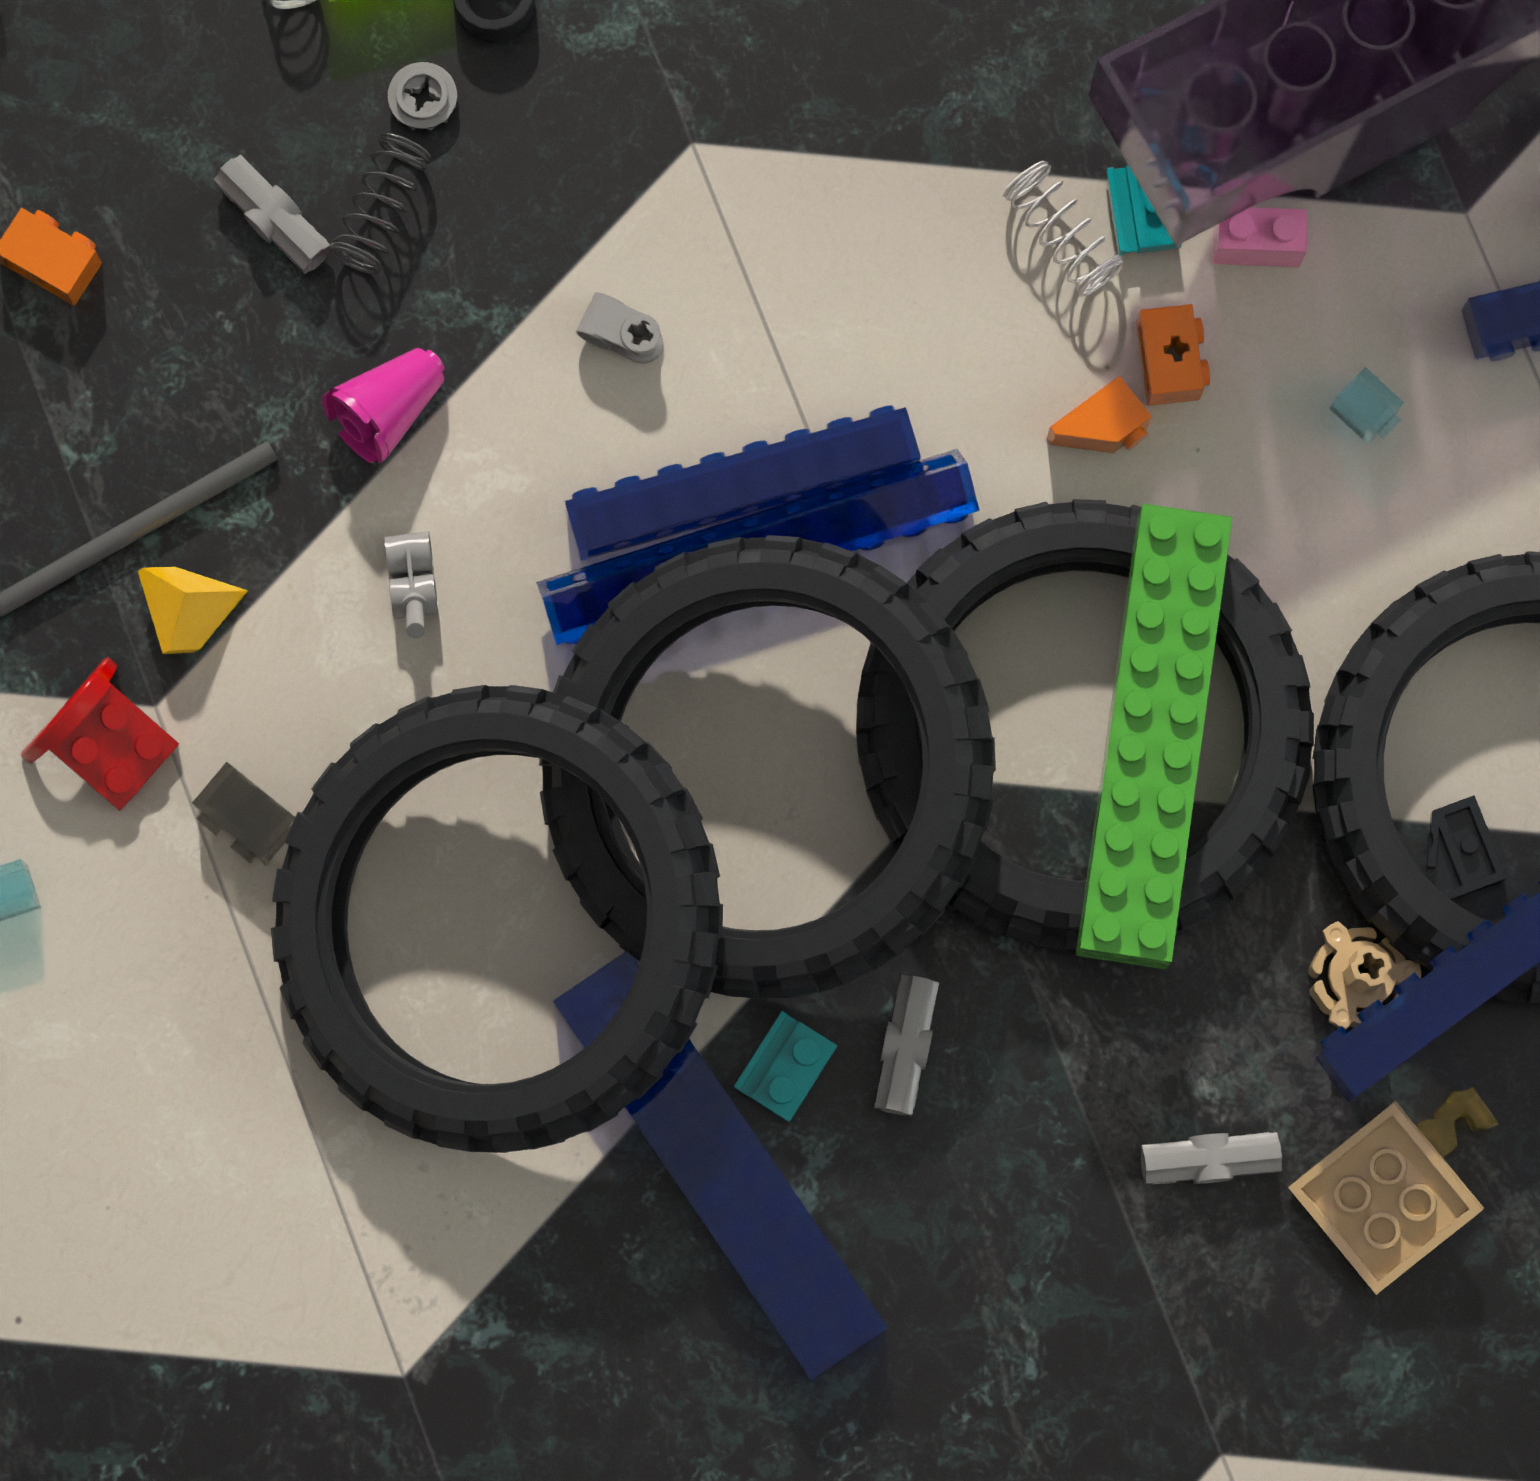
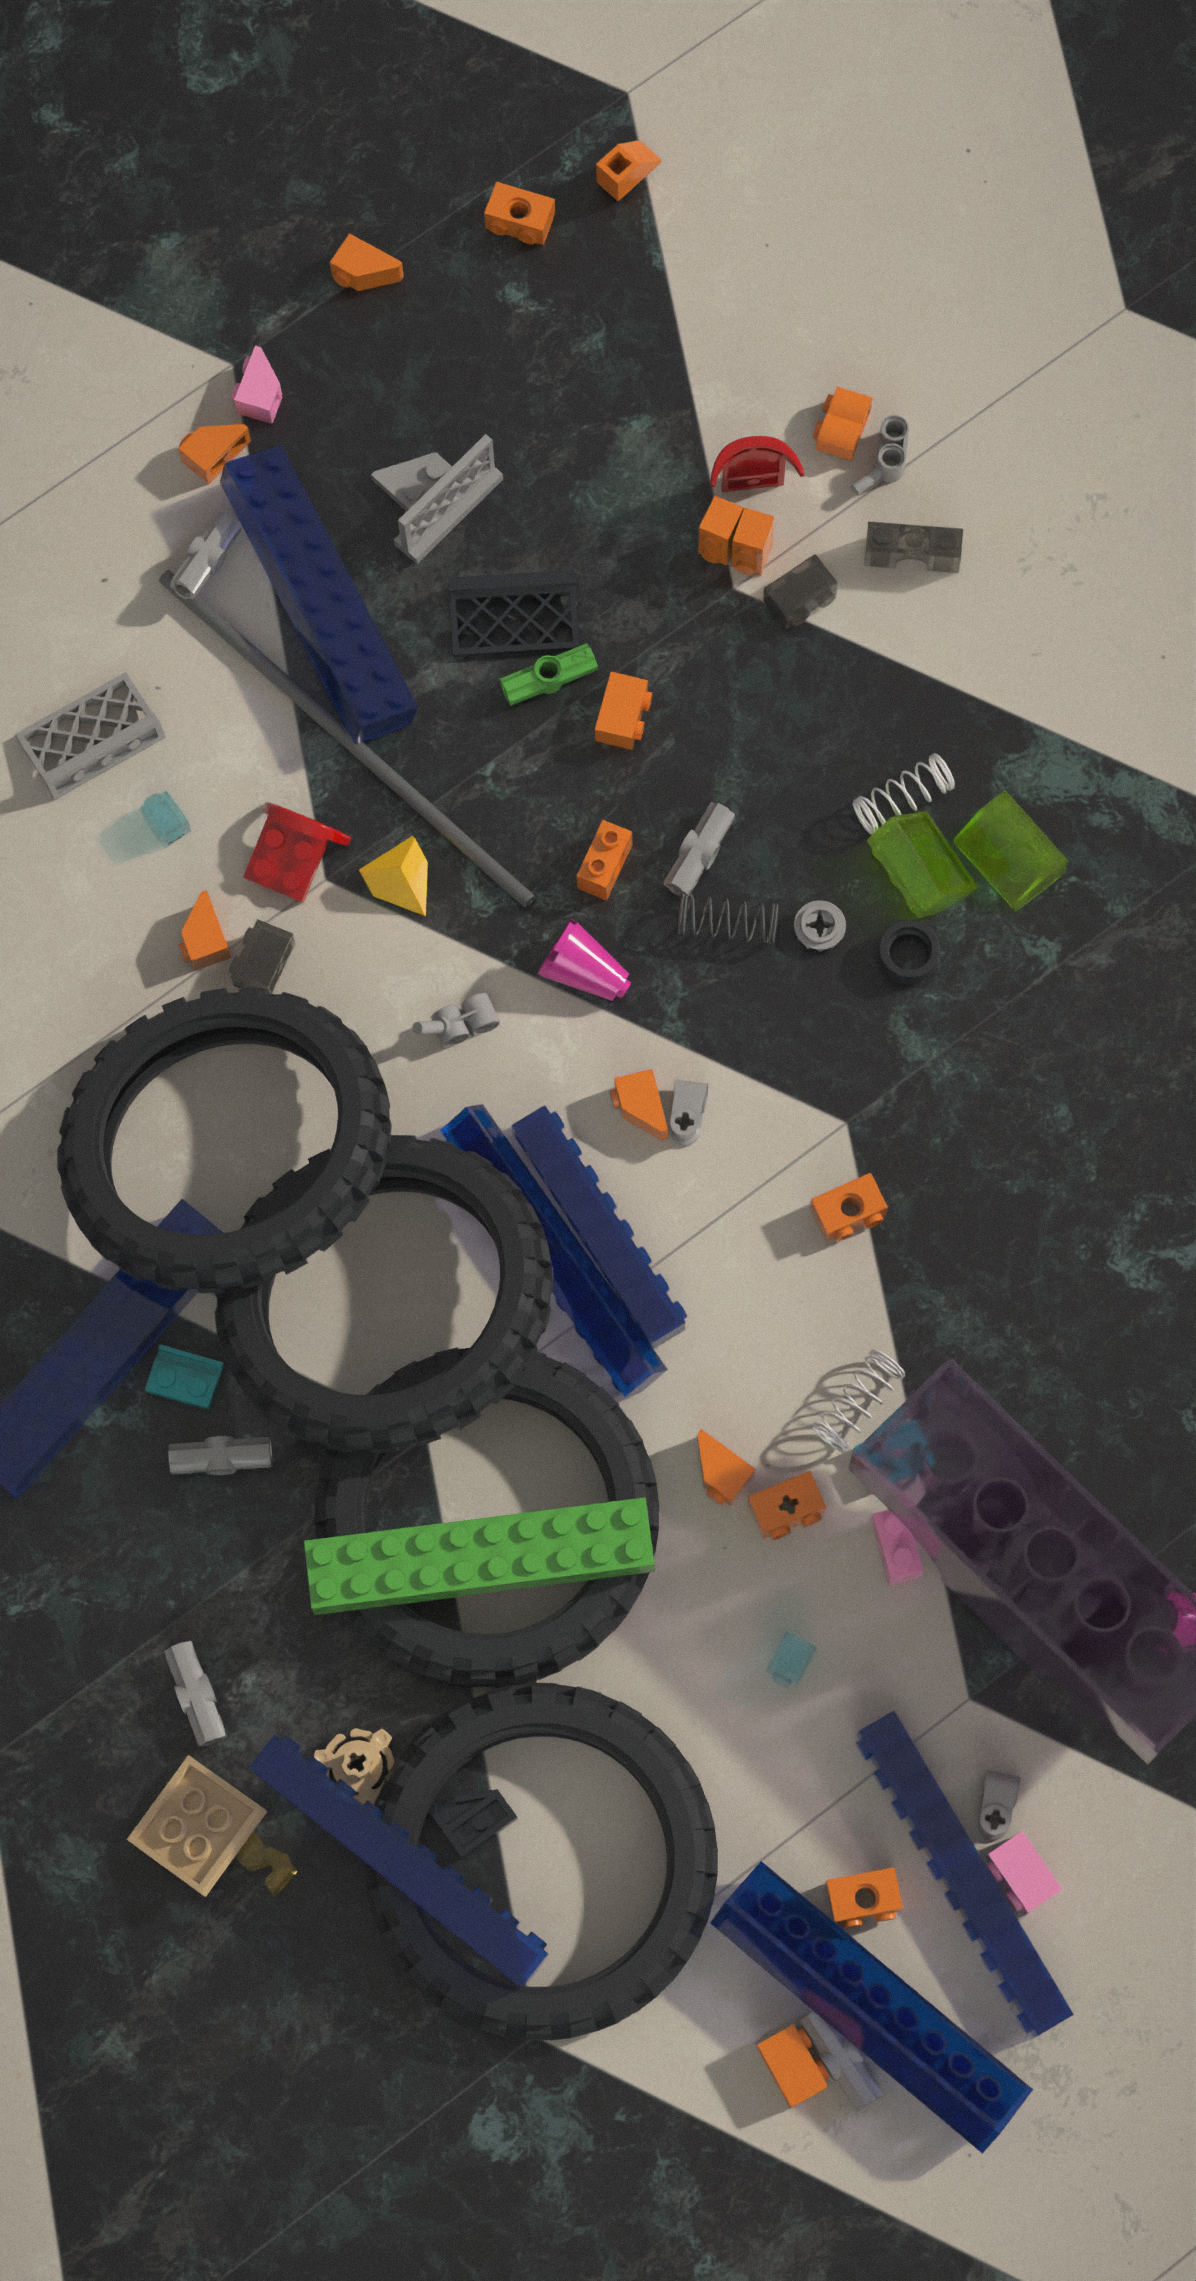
camera: 80 degrees right, 5 degrees down
(188, 882) = (203, 936): none -> orange slope
(249, 335) = (604, 860): none -> orange brick
(594, 383) = (640, 1102): none -> orange slope
(807, 193) = (859, 1192): none -> orange brick

